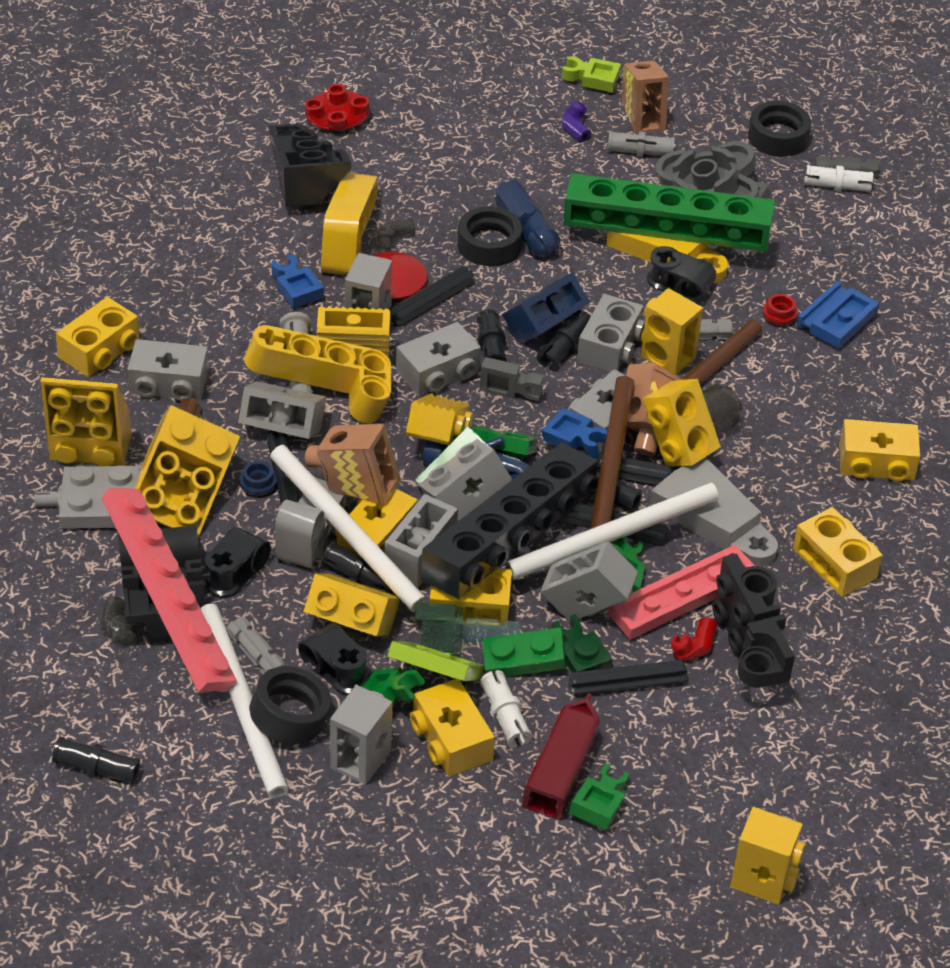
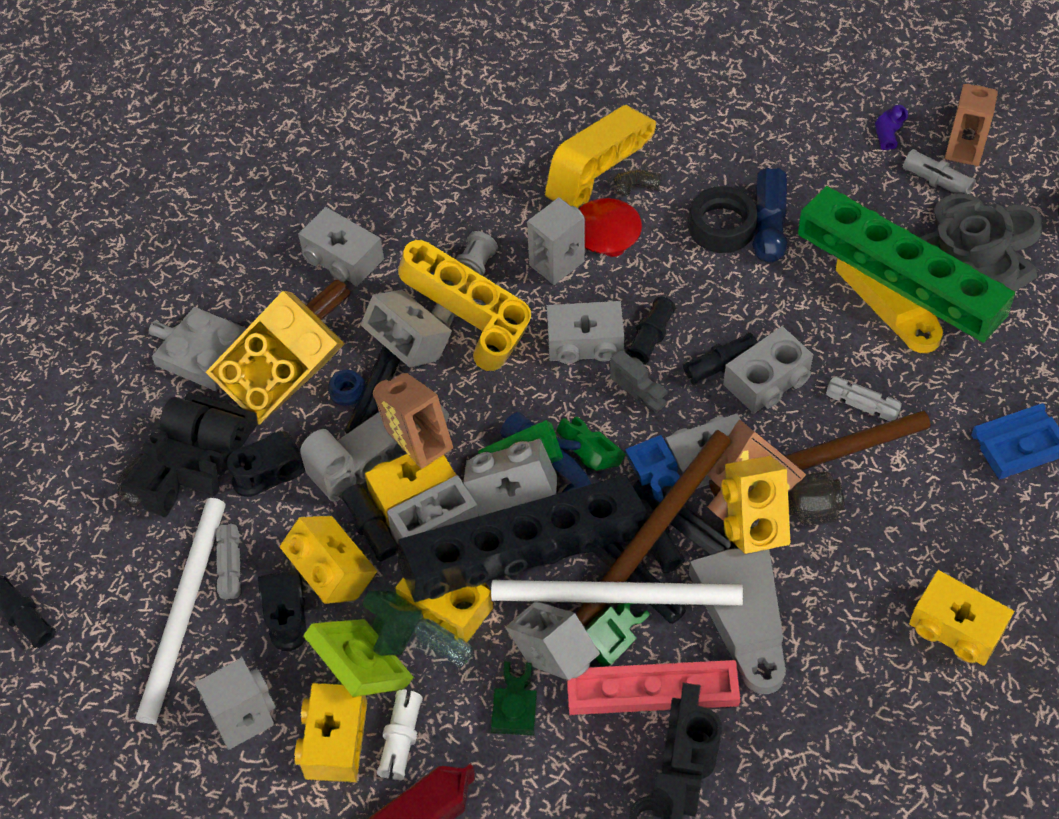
camera: 35 degrees right, 10 degrees up
(86, 421) = (224, 277): yellow slope -> none
(97, 337) = (305, 190): yellow brick -> none
(169, 590) = (169, 475): coral plate -> none
(284, 725) = (209, 607): black tyre -> none
(296, 284) = (513, 201): blue plate -> none
(304, 165) = (596, 82): black wedge -> none
(337, 109) = (670, 36): red dish -> none
(348, 527) = (368, 482): white piece -> none
(356, 326) = (521, 274): yellow brick -> none
(394, 683) = (300, 662): green plate -> none
(431, 296) = (628, 260): black axle -> none
(438, 419) = (534, 397): yellow brick -> none
(525, 652) = (455, 683): green plate -> none
(546, 308) = (718, 319): dark blue brick -> none
(595, 74) = (941, 83): lime plate -> none
(627, 678) = (537, 757): black axle -> none
(671, 331) = (821, 395): yellow brick -> none
(681, 274) = (882, 335): black piece -> none
(696, 646) = (629, 754): red arm -> none
(780, 309) = (967, 403): red plate -> none
(837, 551) = (831, 717): yellow brick -> none

